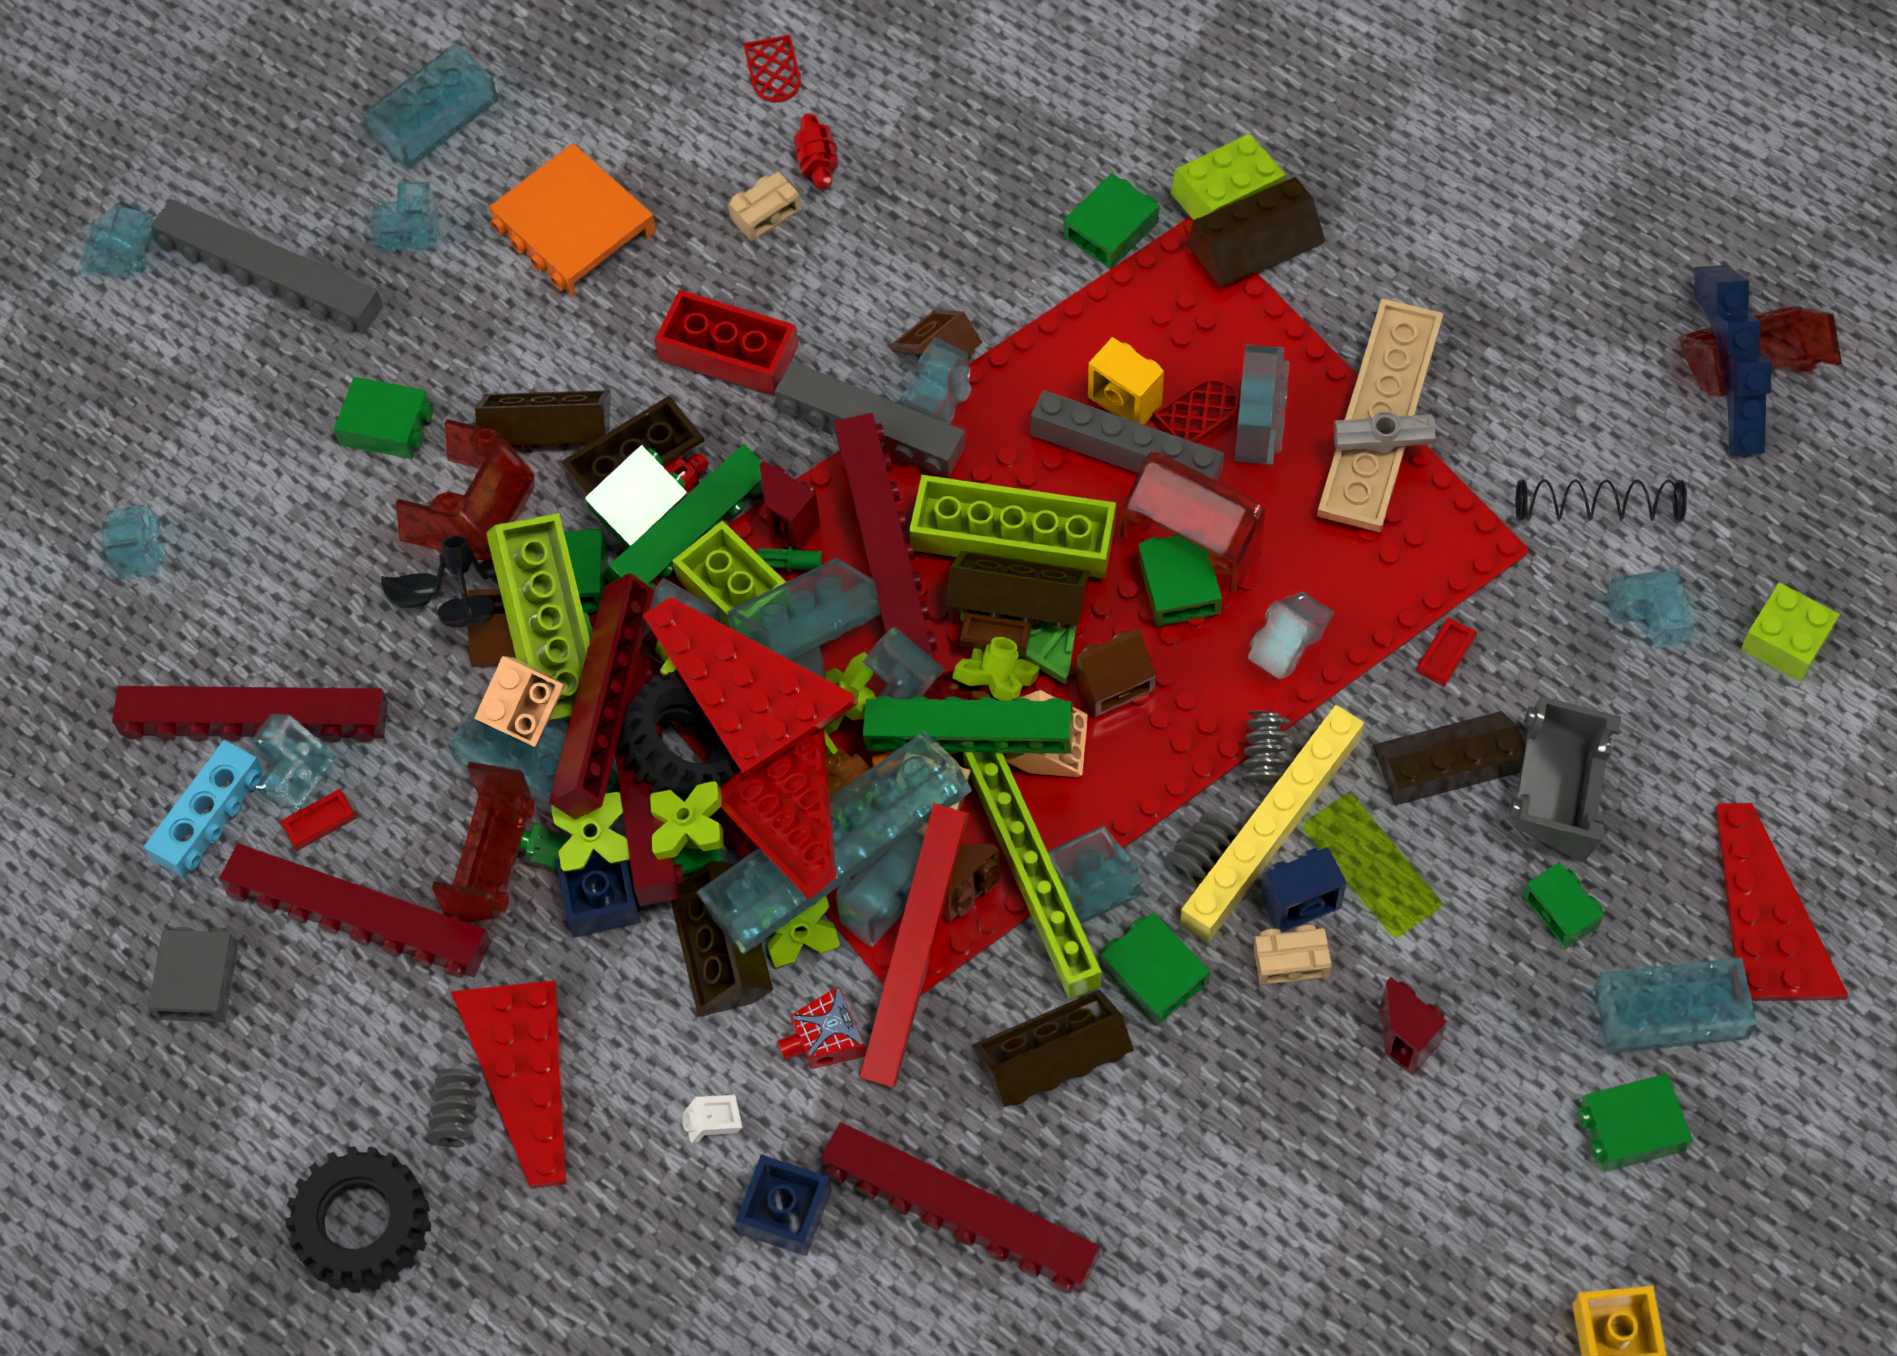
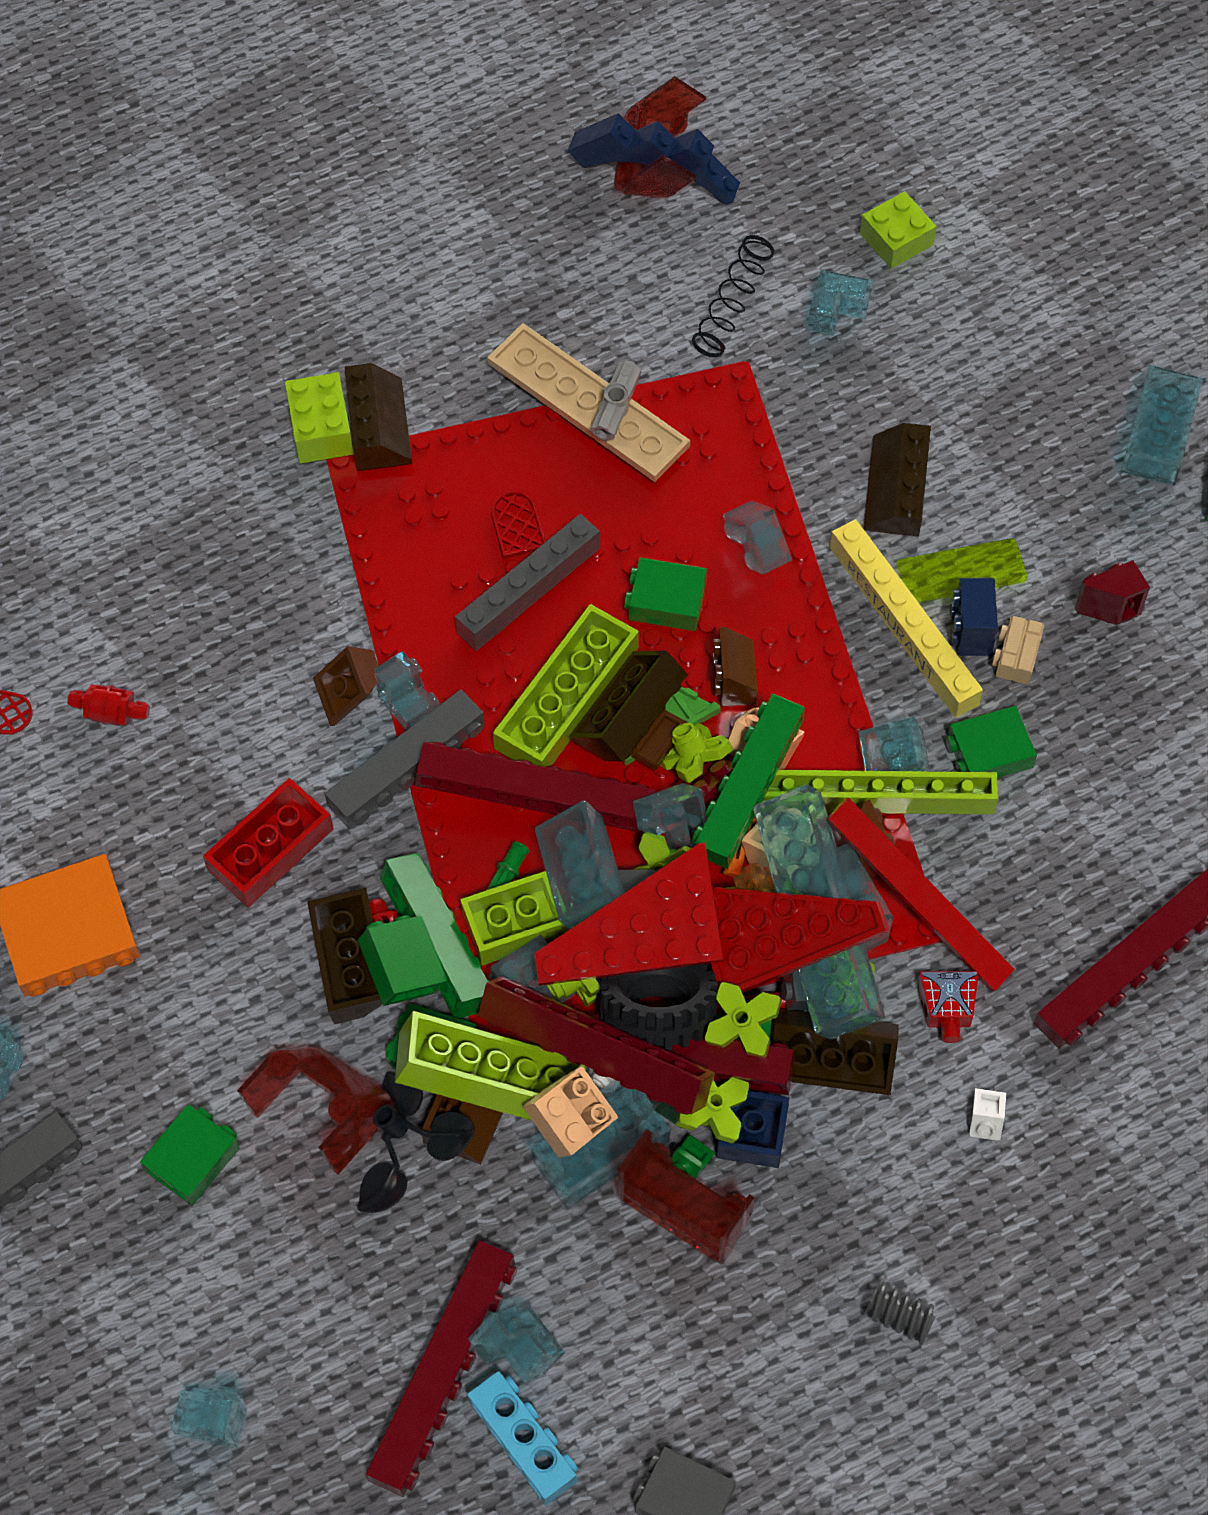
camera: 70 degrees left, 0 degrees up
(318, 819) = (573, 1338): red tile -> none
(355, 910) = (679, 1338): dark red brick -> none
(383, 1257) = (952, 1460): black tyre -> none
(519, 1053) = (870, 1247): red wing -> none
(546, 417) = (262, 1015): dark brown slope -> none
(764, 206) = (140, 766): tan brick -> none
(783, 1205) = (1089, 1081): dark blue brick -> none
(789, 506) = (465, 849): dark red slope -> none
(1053, 1048) = (1028, 842): dark brown slope -> none
(1111, 220) = (304, 514): green brick -> none
(1125, 382) = (477, 557): yellow brick -> none
(1198, 511) = (630, 549): clear red windscreen -> none
(1199, 846) = (905, 675): dark grey piece -> none
(1262, 404) = (546, 473): clear light blue brick -> none
(1264, 747) = (843, 594): dark grey piece -> none
(1446, 652) = (808, 449): red tile -> none
(1563, 775) = (959, 413): dark grey windscreen -> none
(1563, 904) = (1052, 460): green brick -> none
(1767, 916) = (1105, 343): red wing -> none

